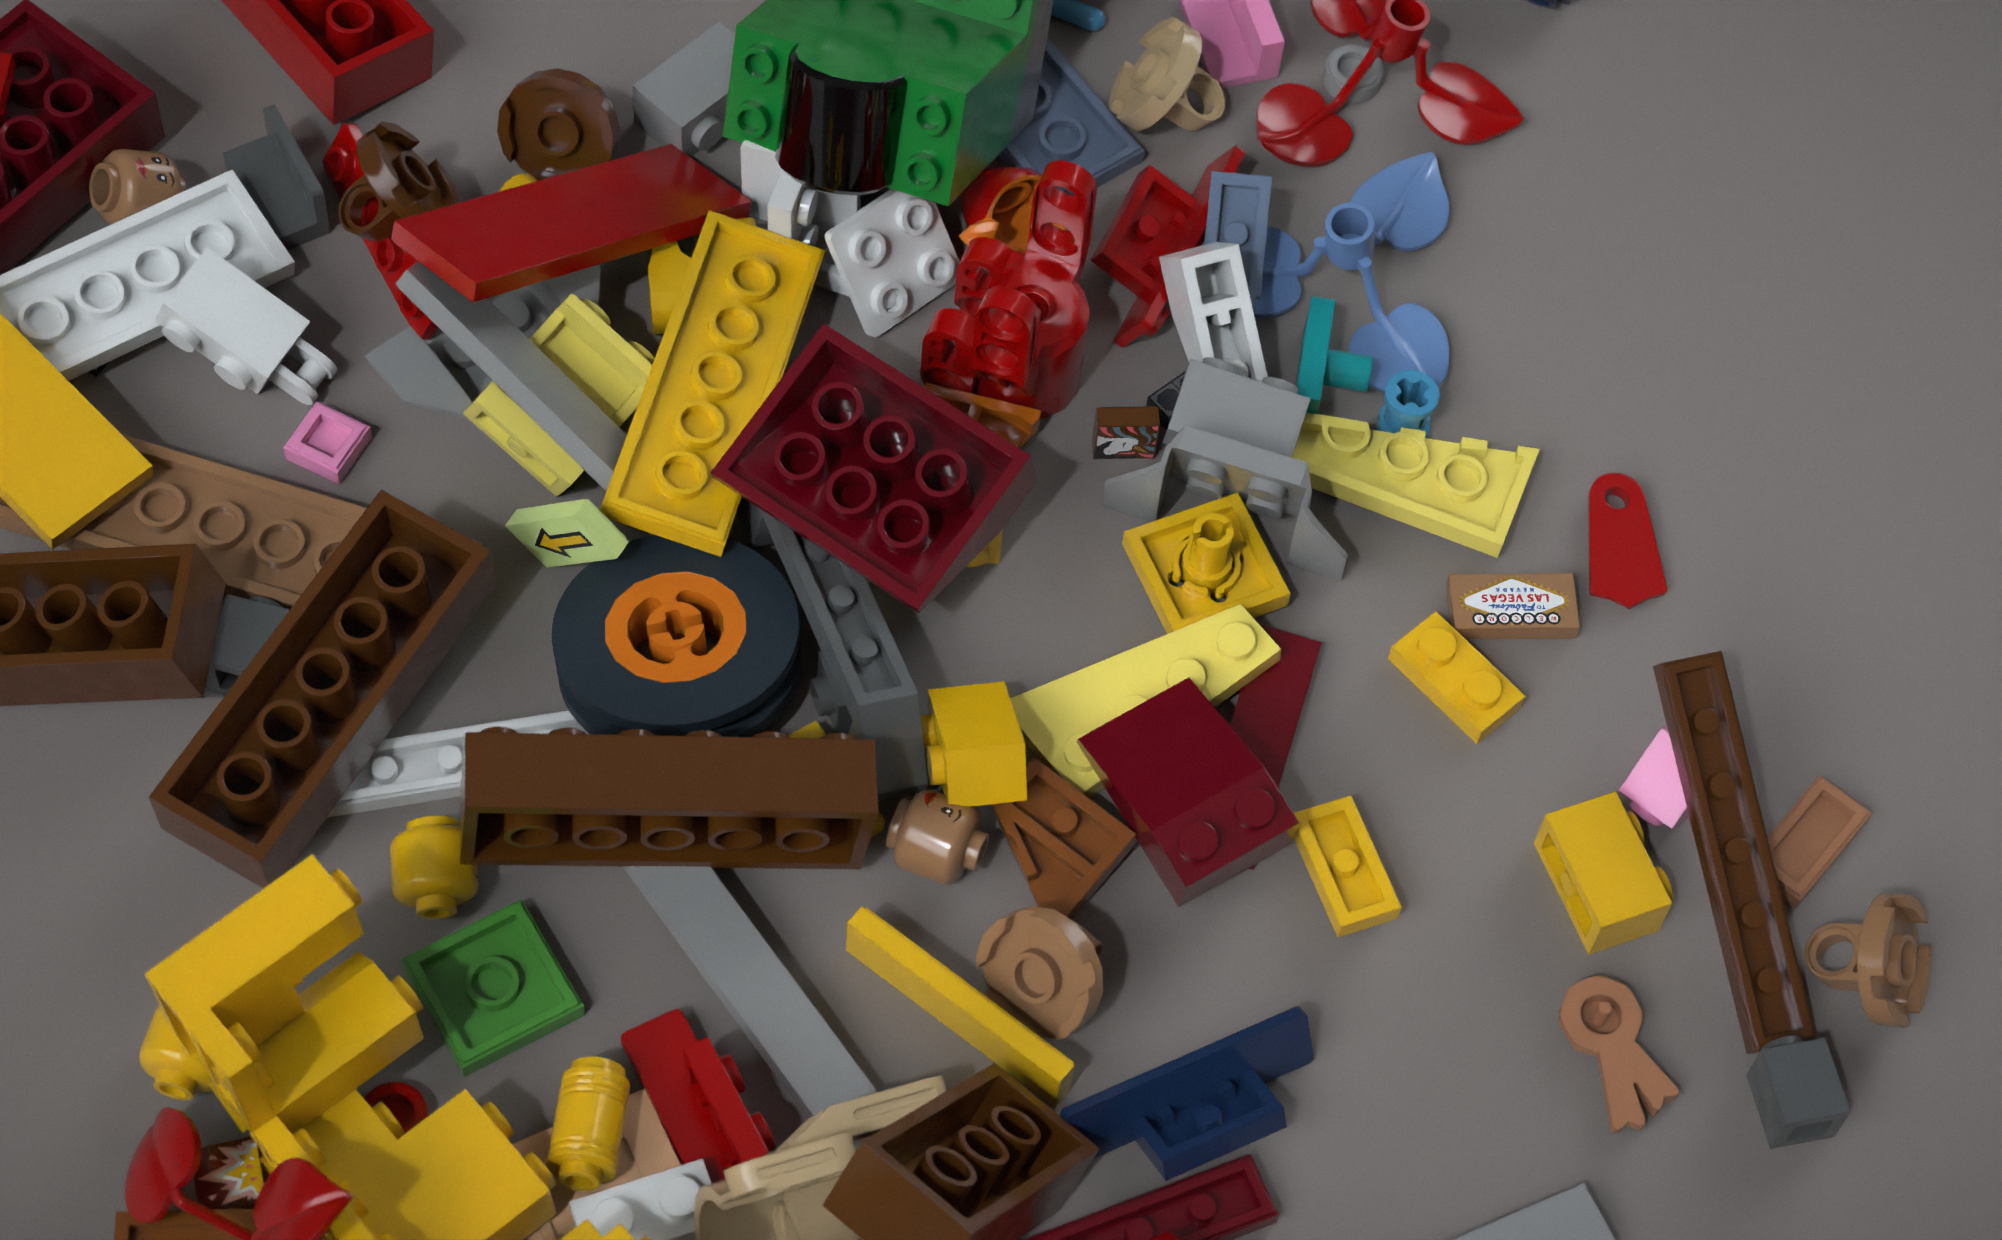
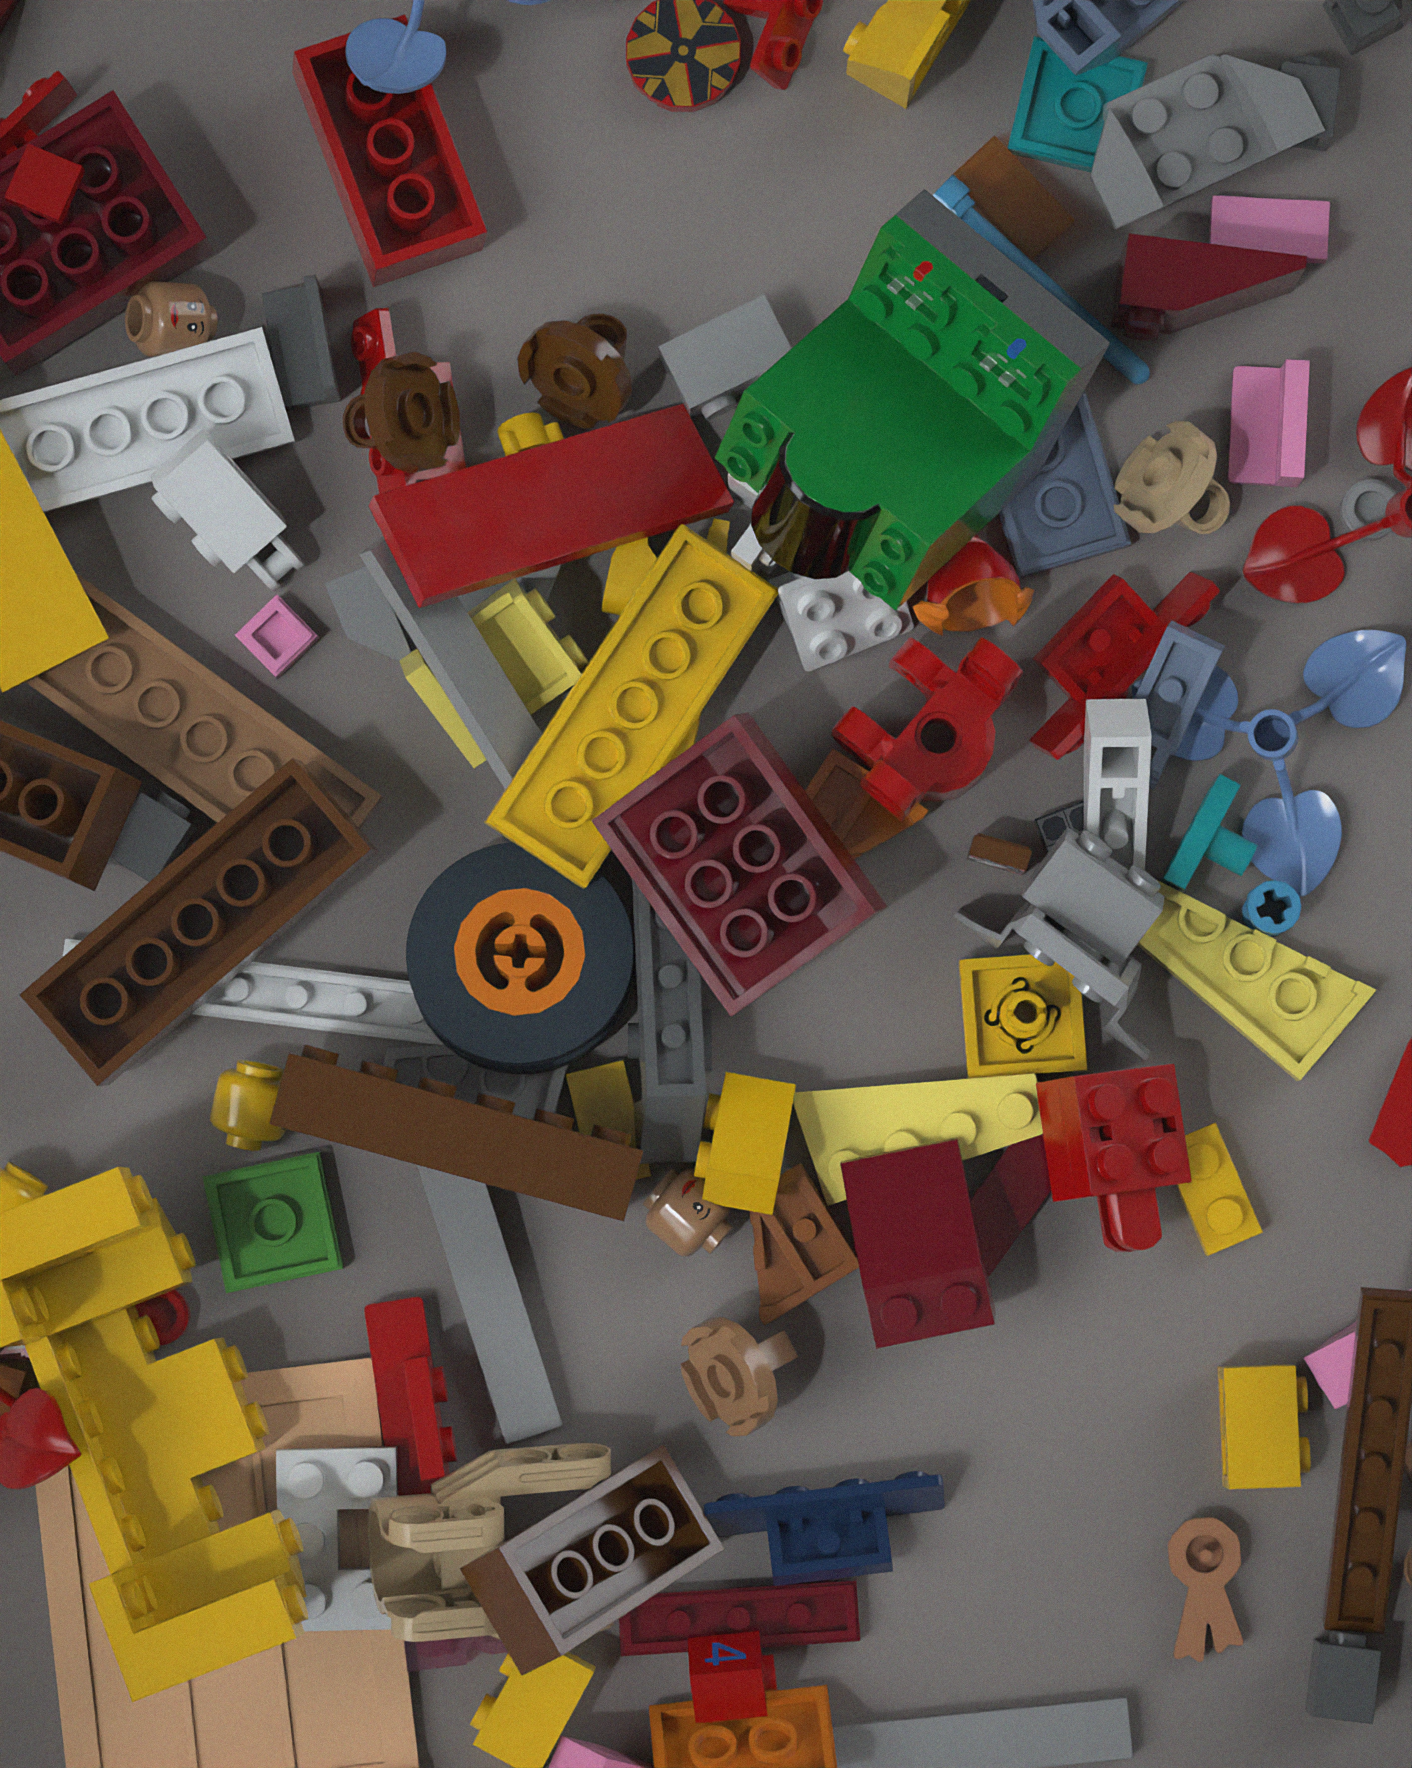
camera: 30 degrees right, 25 degrees up
(567, 533) = (454, 822): yellowish green tile -> none
(588, 1123) = (312, 1386): yellow head -> none
(959, 1006) = (656, 1373): yellow tile -> none
(1345, 867) = (1036, 1345): yellow plate -> none
(1347, 639) = (1116, 1141): none -> red brick
(1513, 605) = (1290, 1134): tile -> none

